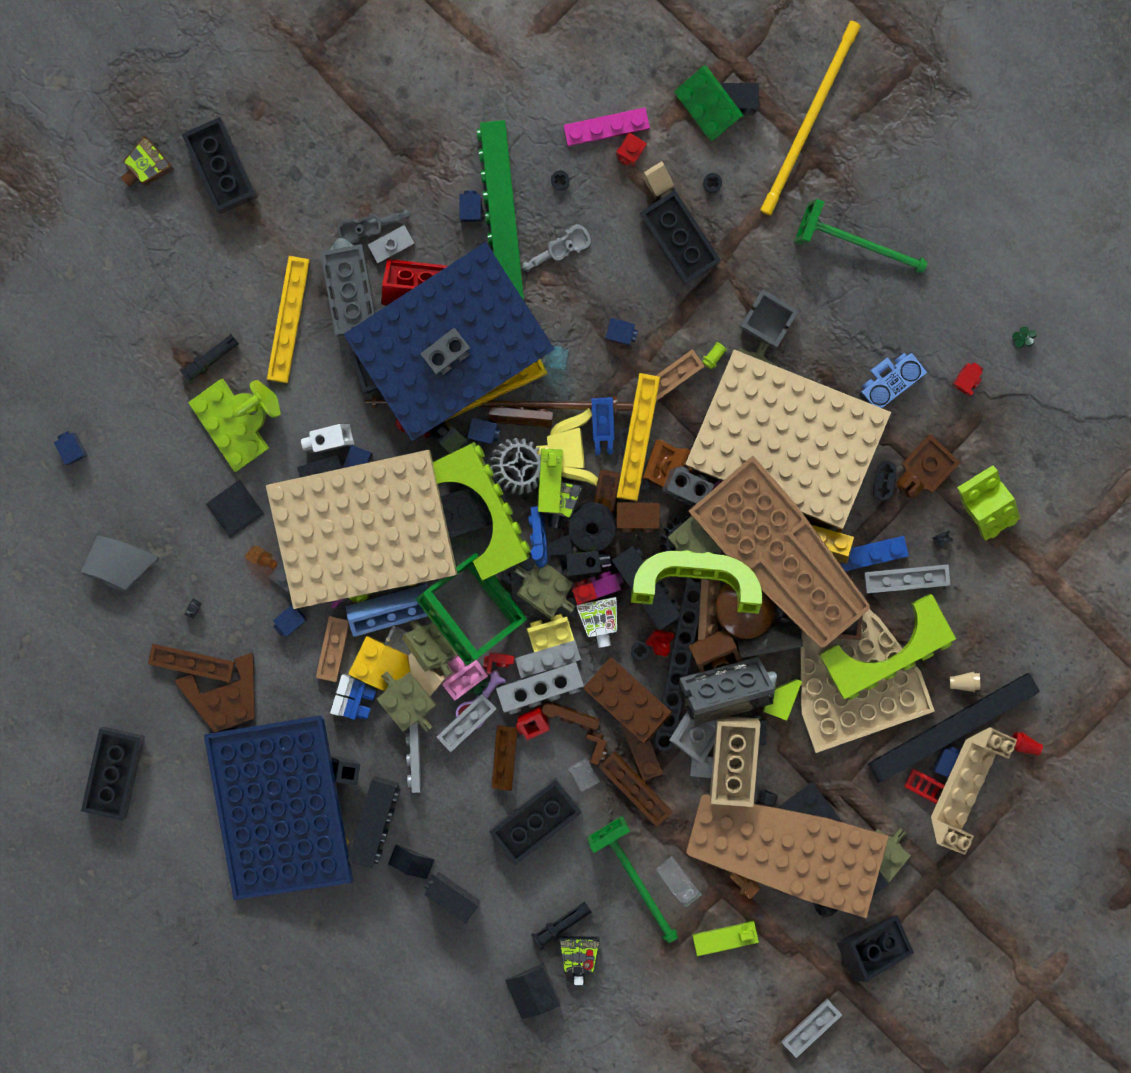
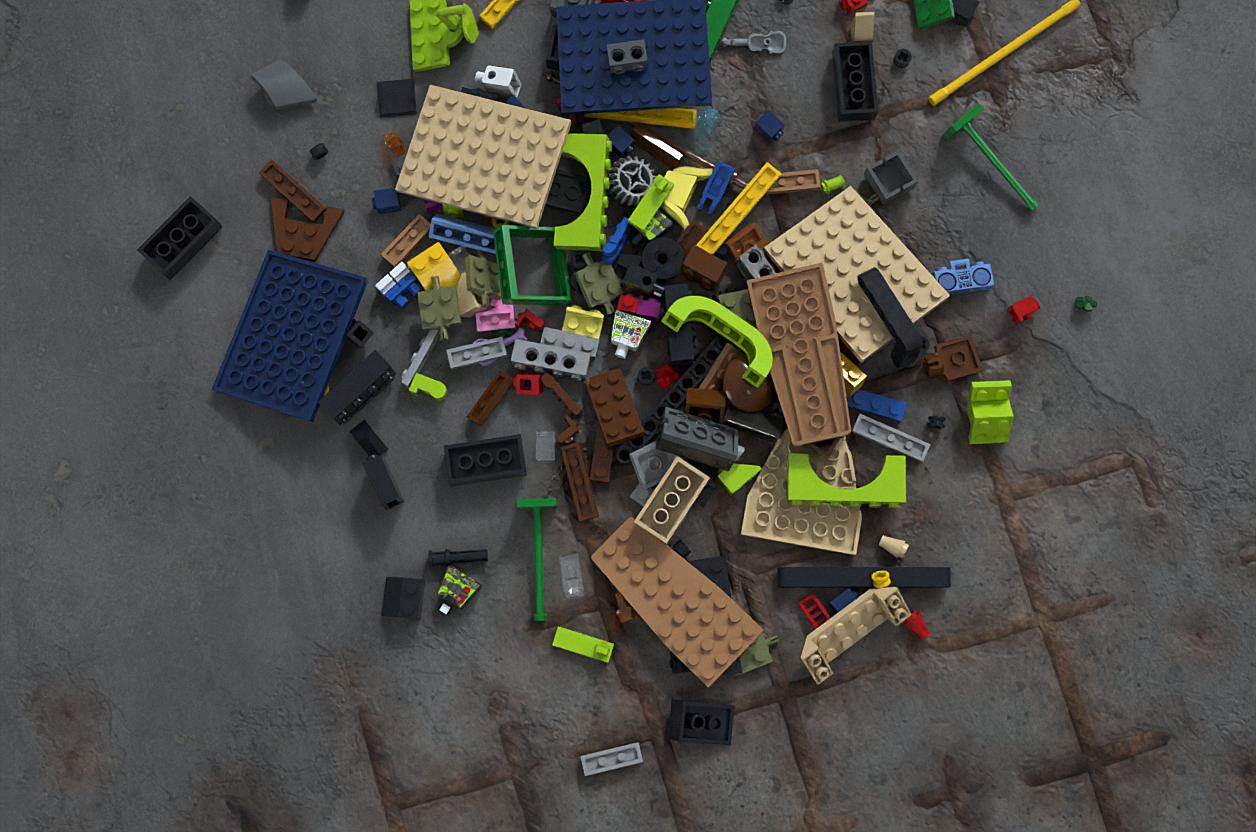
camera: 25 degrees right, 10 degrees down
(444, 778) = (428, 386): none -> lime leg
(845, 466) = (894, 317): none -> black beam
(971, 724) = (881, 579): none -> yellow bush

